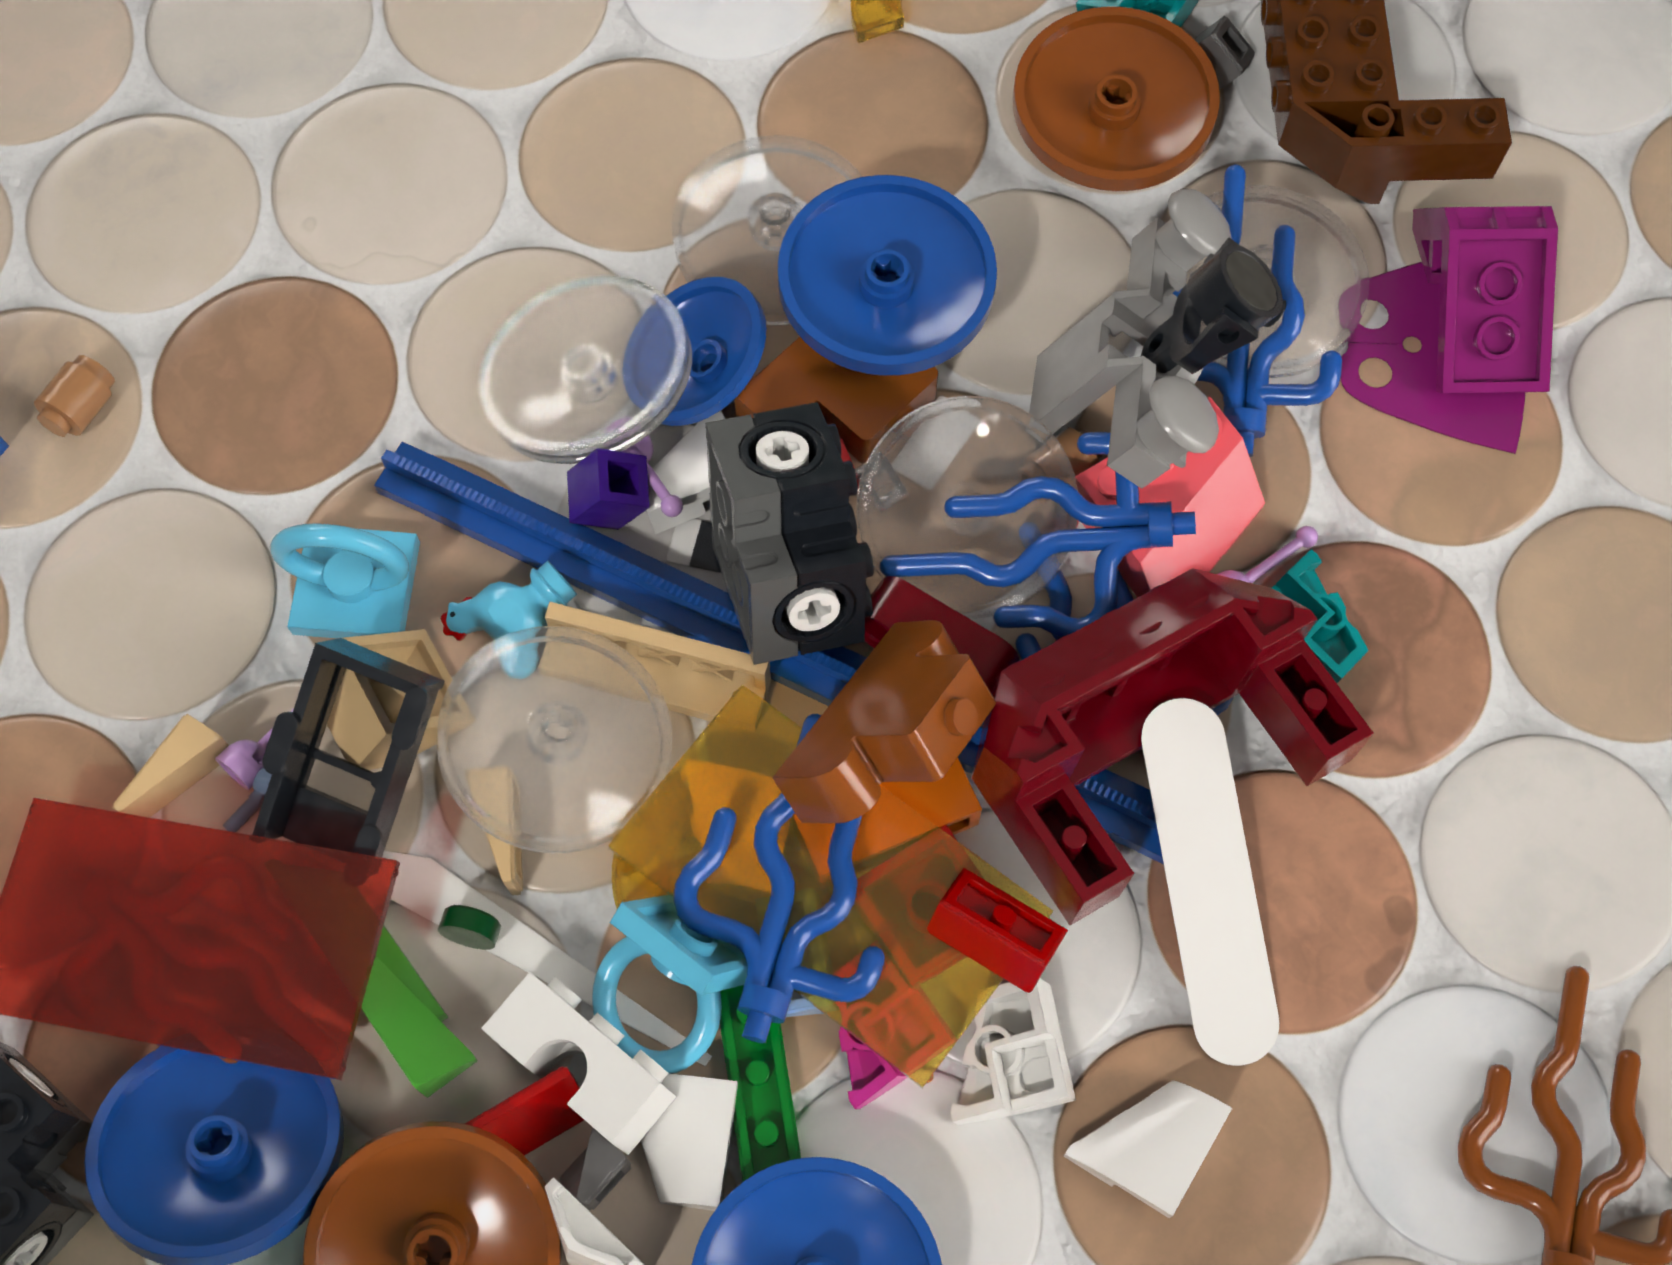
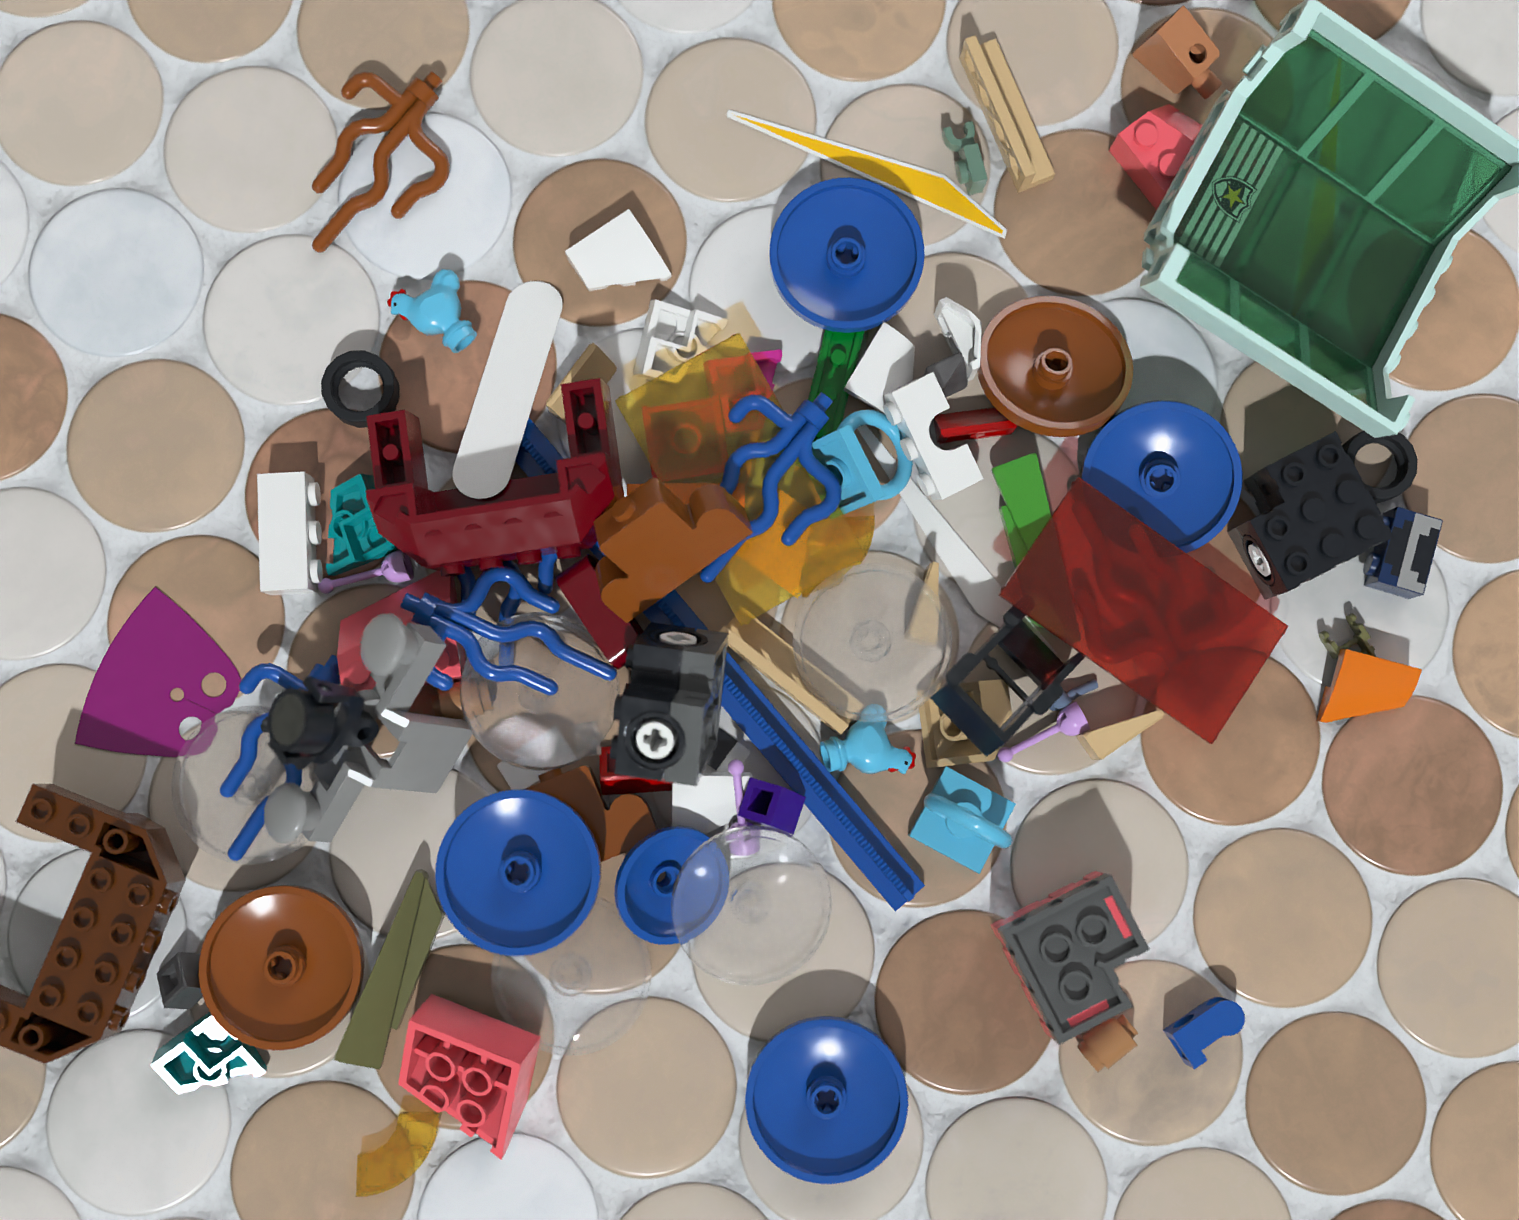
camera: 160 degrees left, 15 degrees up
(149, 460) = (1069, 953): none -> dark grey piece
(406, 201) = (826, 1100): none -> blue dish
(469, 927) = (967, 550): dark green tile -> none
(847, 86) = (469, 1068): none -> coral wedge
(983, 135) = (393, 976): none -> olive wedge
(996, 930) = (653, 401): red slope -> none
(1111, 940) = (590, 365): none -> tan slope
(1365, 948) = (436, 311): none -> medium azure animal
(1390, 572) = (288, 533): none -> white brick
(1429, 763) = (340, 367): none -> black tyre
(1493, 294) = (93, 712): magenta bracket -> none

